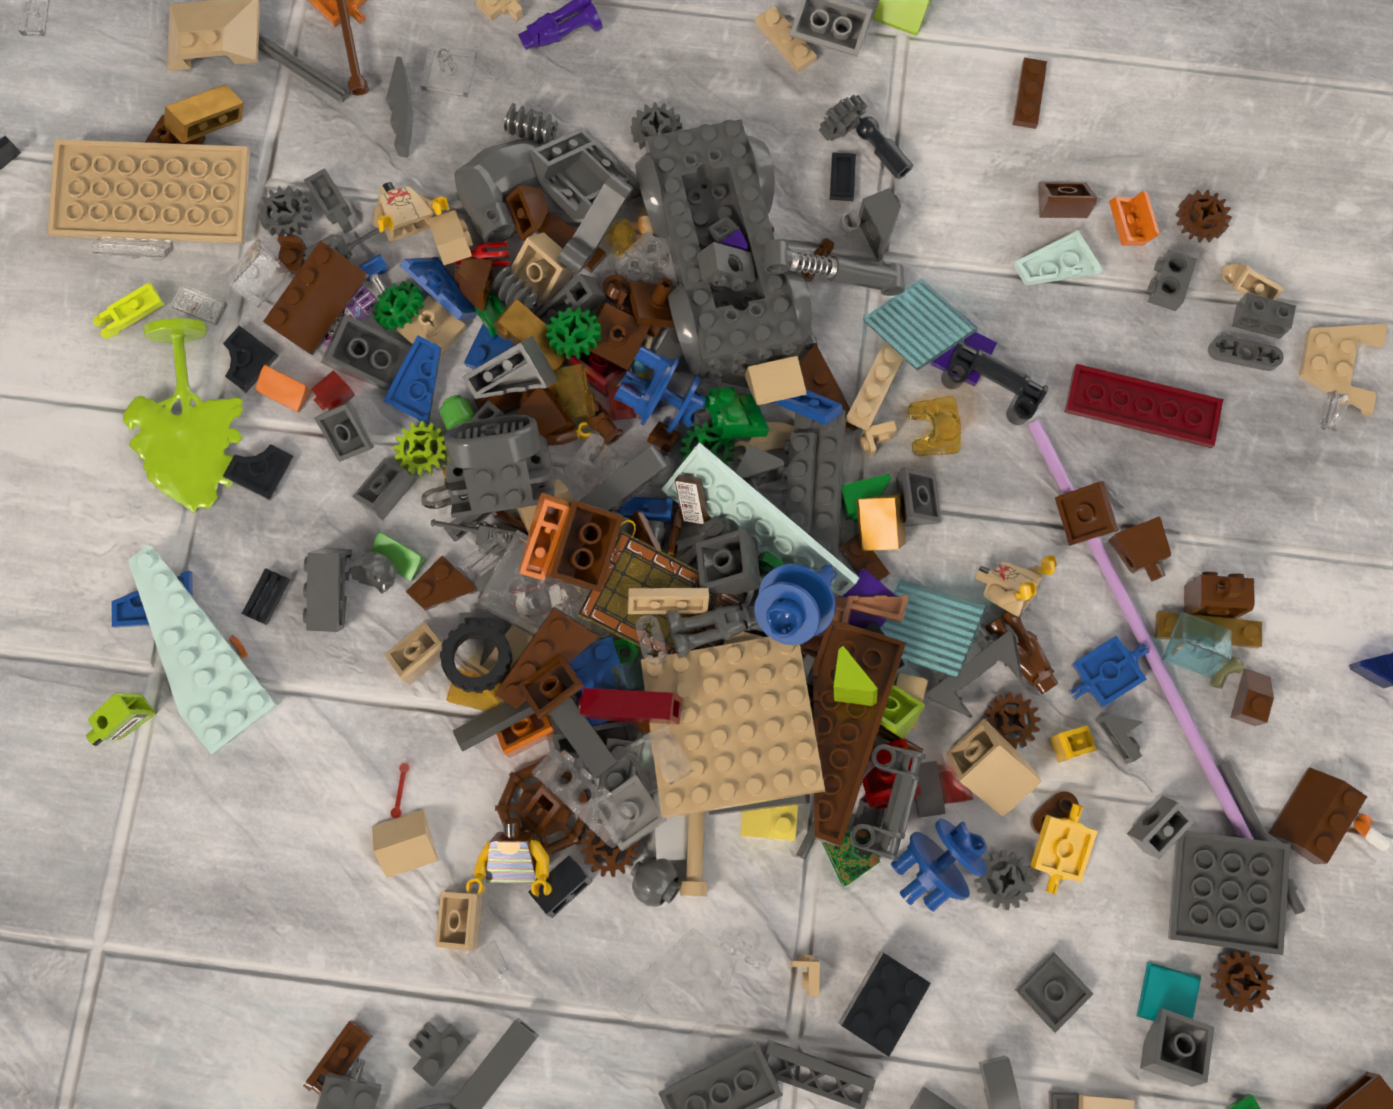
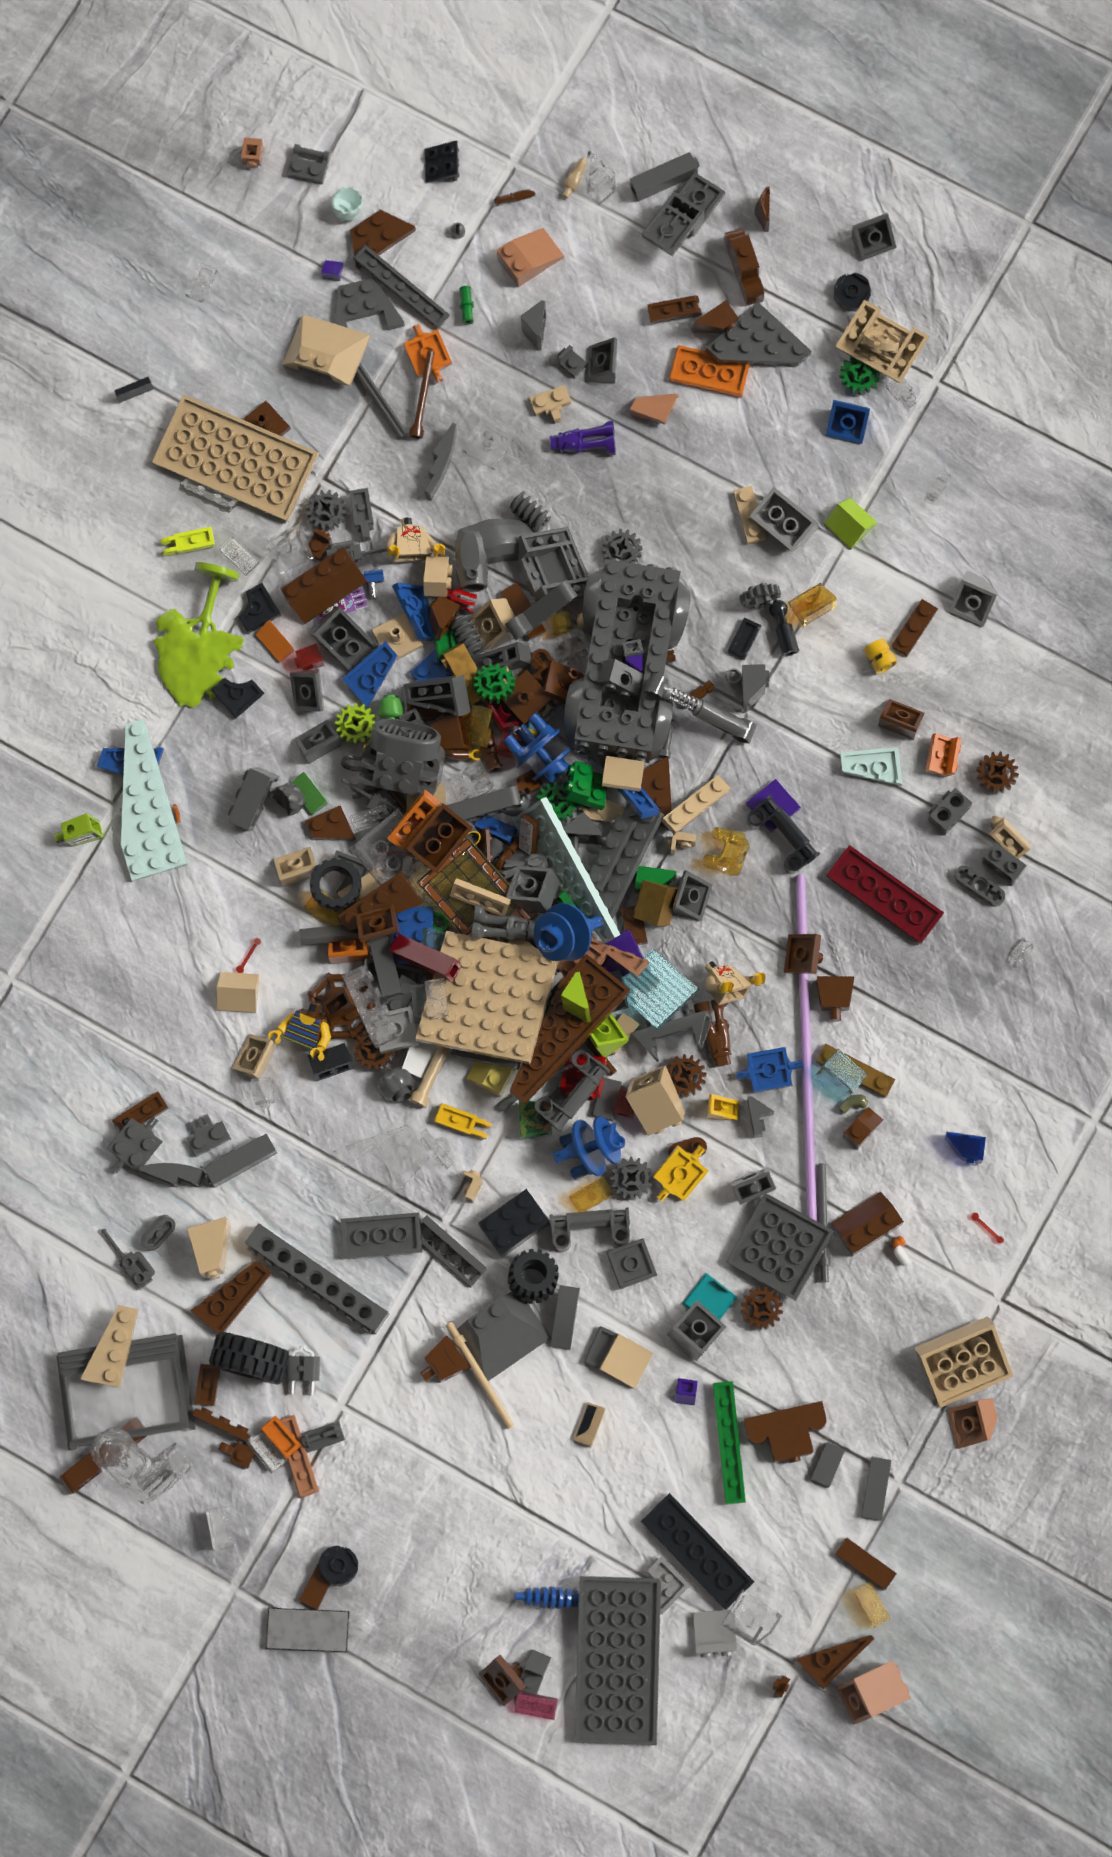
camera: 30 degrees right, 0 degrees up
(203, 113) = (296, 414): pearl gold brick -> none
(247, 611) = (200, 783): black tile -> none
(398, 305) = (380, 612): green gear -> none
(527, 209) = (500, 577): reddish brown slope -> none
(645, 641) = (453, 919): clear beam -> none
(757, 895) = (460, 1120): none -> yellow hinge
(904, 108) = (813, 604): none -> clear yellow slope
(920, 324) = (747, 772): clear light blue piece -> none
(959, 1052) = (536, 1261): none -> black tyre
(962, 923) = (591, 1195): none -> clear yellow slope
(978, 956) = (562, 1224): none -> dark grey piece
(1002, 131) = (877, 650): none -> yellow wheel
(1084, 35) = (973, 599): none -> light grey slope
(1219, 595) = (869, 1047): reddish brown hinge -> none
(1331, 356) = (1041, 914): tan wing -> none

